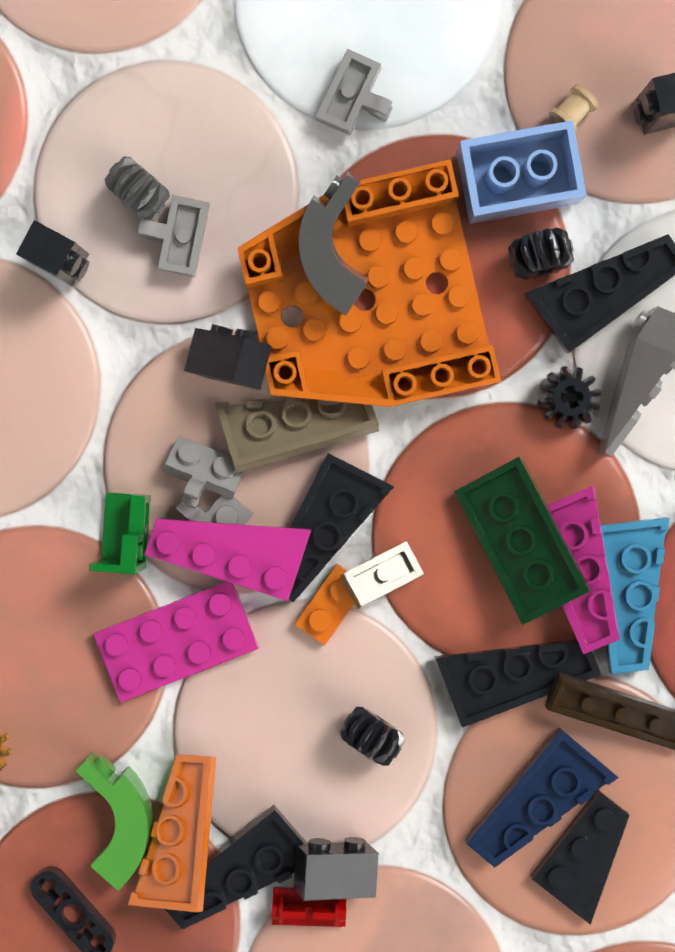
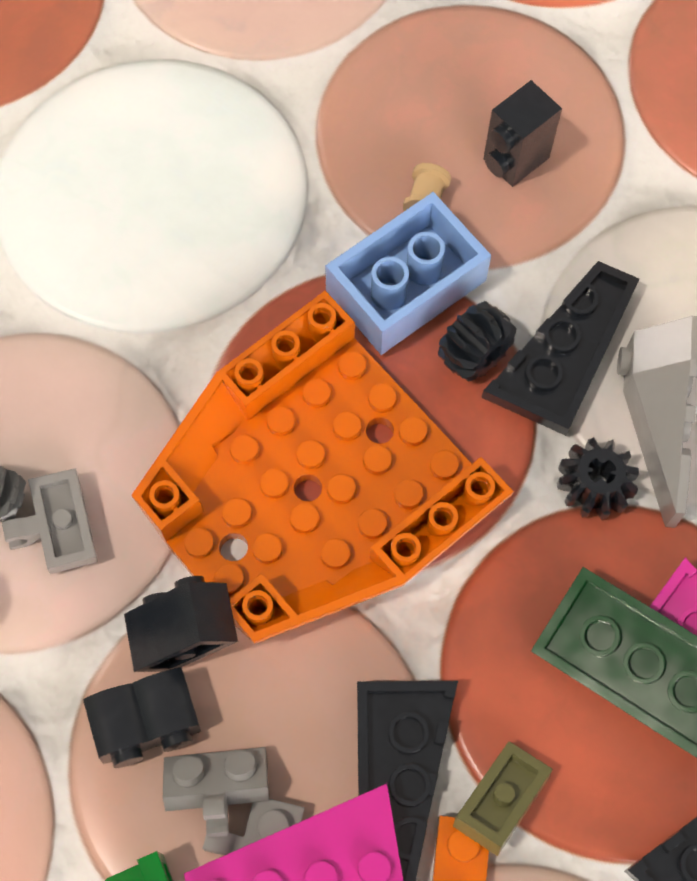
camera: 30 degrees left, 20 degrees down
(176, 403) = (142, 717): none -> black brick
(280, 430) = (282, 689): dark tan wing -> none
(323, 266) = (242, 464): dark grey arch -> none
(352, 93) = (182, 283): light grey plate -> none

